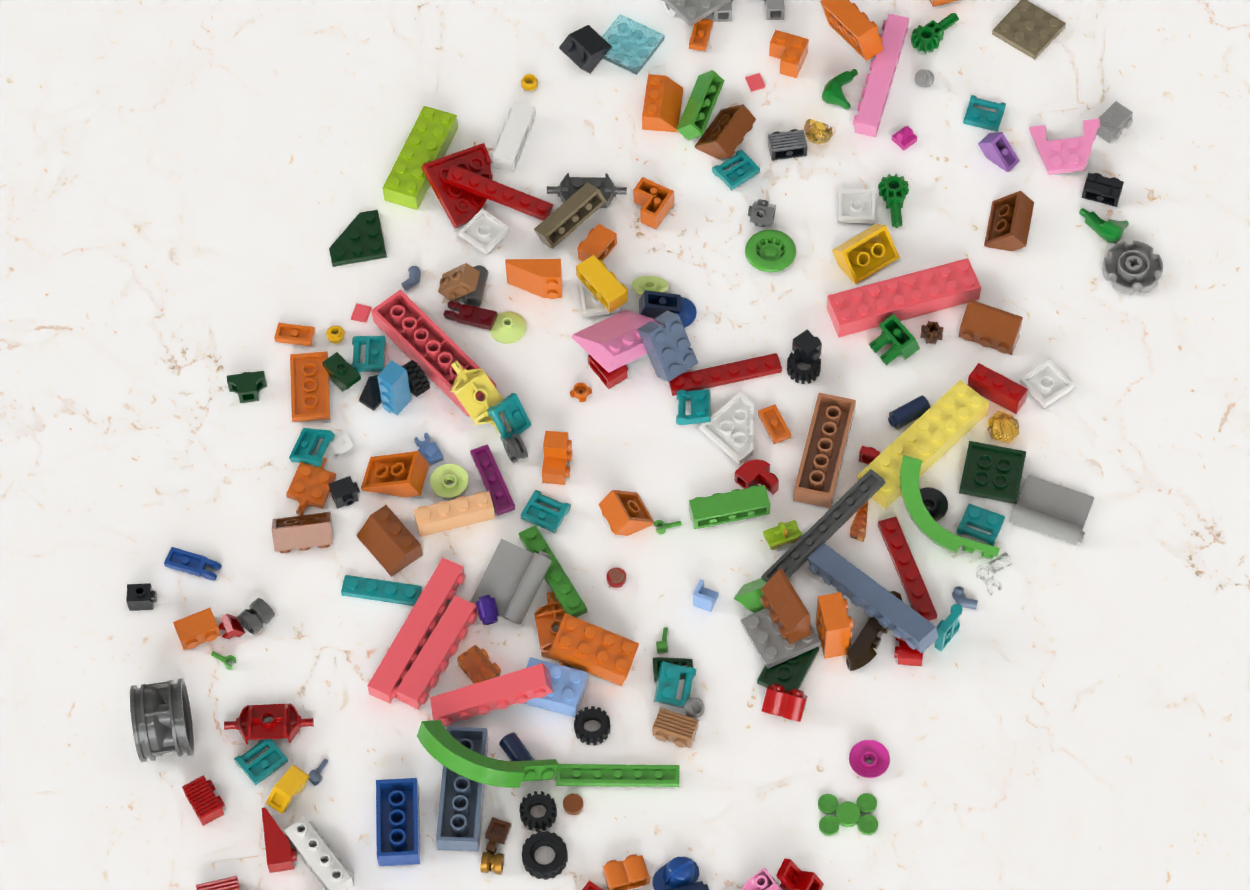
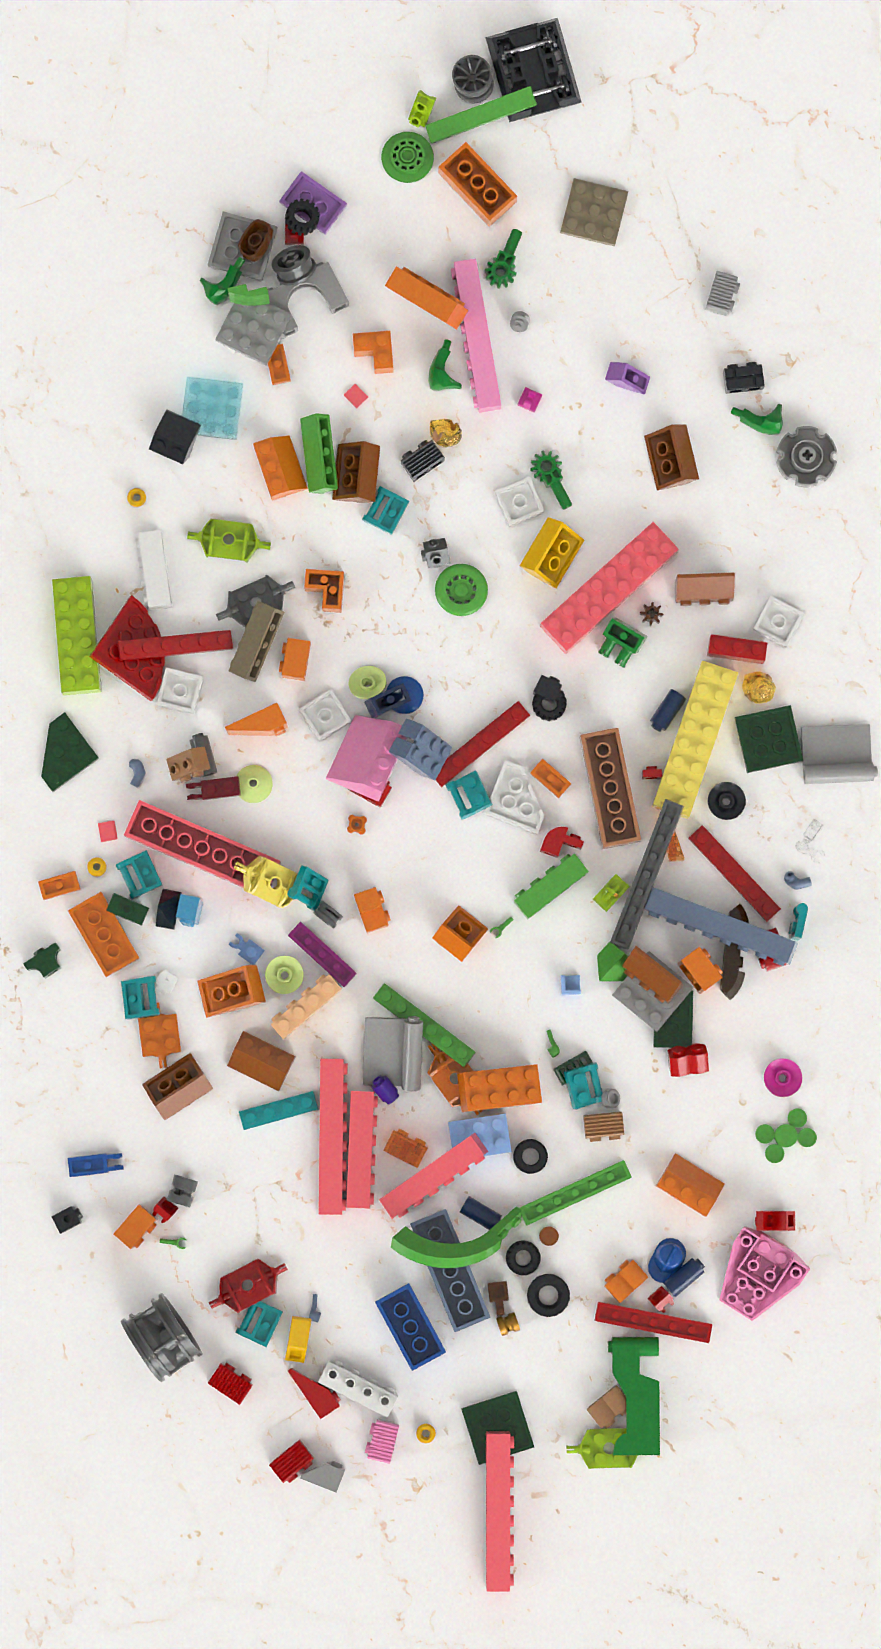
camera: 30 degrees left, 25 degrees up
(344, 492) = (195, 1030): black brick -> none
(417, 380) = (199, 885): black tyre -> none
(544, 516) = (383, 969): teal plate -> none
(599, 148) = (241, 549): none -> lime plate
(602, 283) = (324, 703): yellow brick -> none
(616, 577) = (481, 1000): red tile -> none
(730, 816) = (690, 1185): none -> orange slope
(923, 520) = (748, 830): bright green arch -> none
(983, 520) = (780, 792): teal plate -> none
(984, 118) = (596, 341): teal plate -> none
(1065, 154) = (693, 352): bright pink wing -> none

